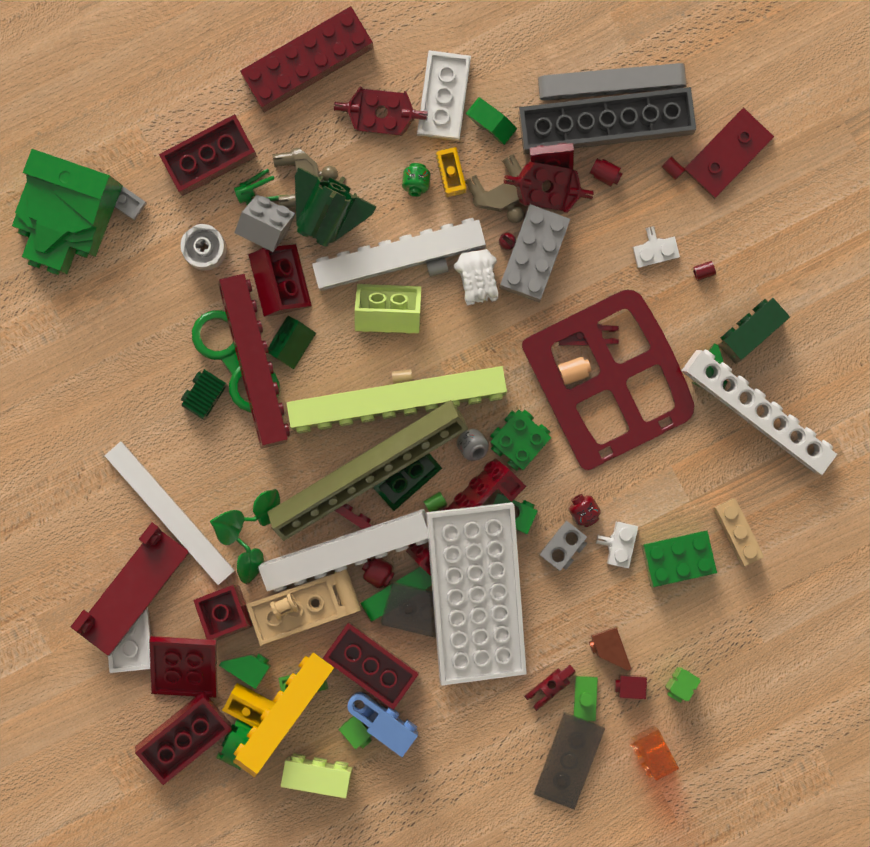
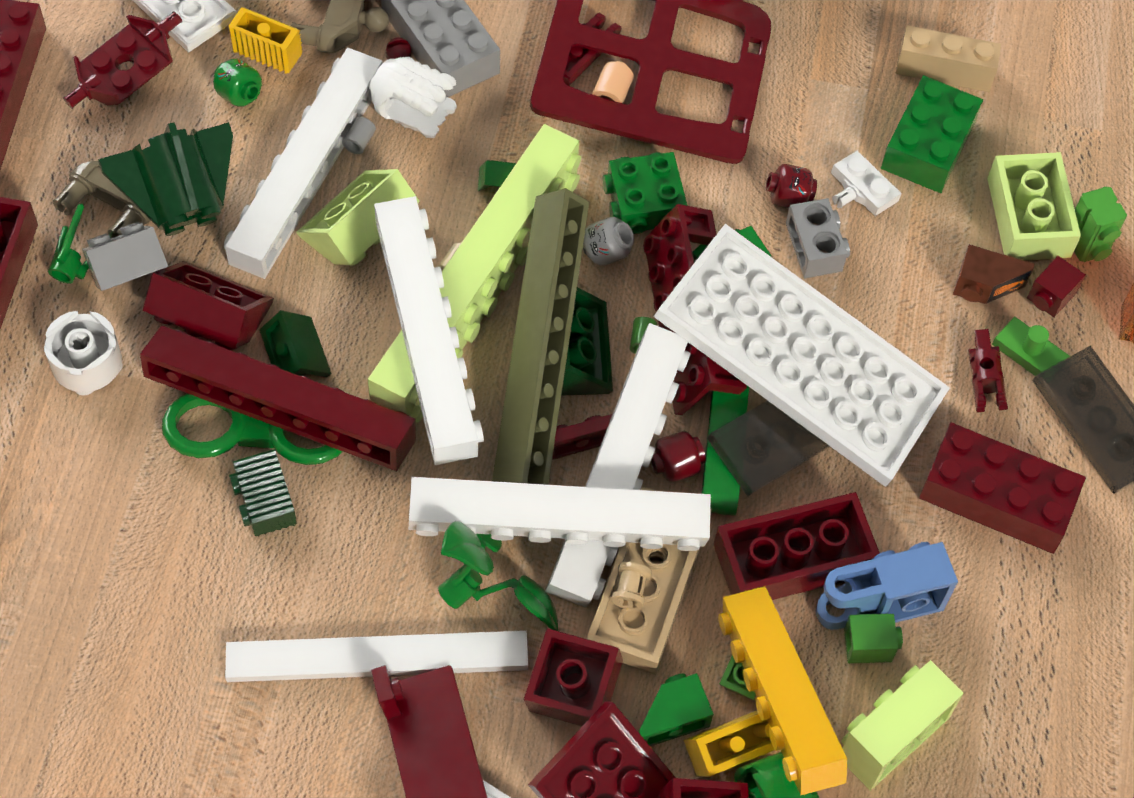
camera: 60 degrees left, 25 degrees down
(289, 548) = (561, 512): none -> white brick
(330, 409) = (426, 331): none -> white brick
(467, 358) = (493, 173): none -> green slope
(486, 738) = (1002, 488): none -> dark red brick
(671, 643) = (1033, 206): none -> yellowish green brick

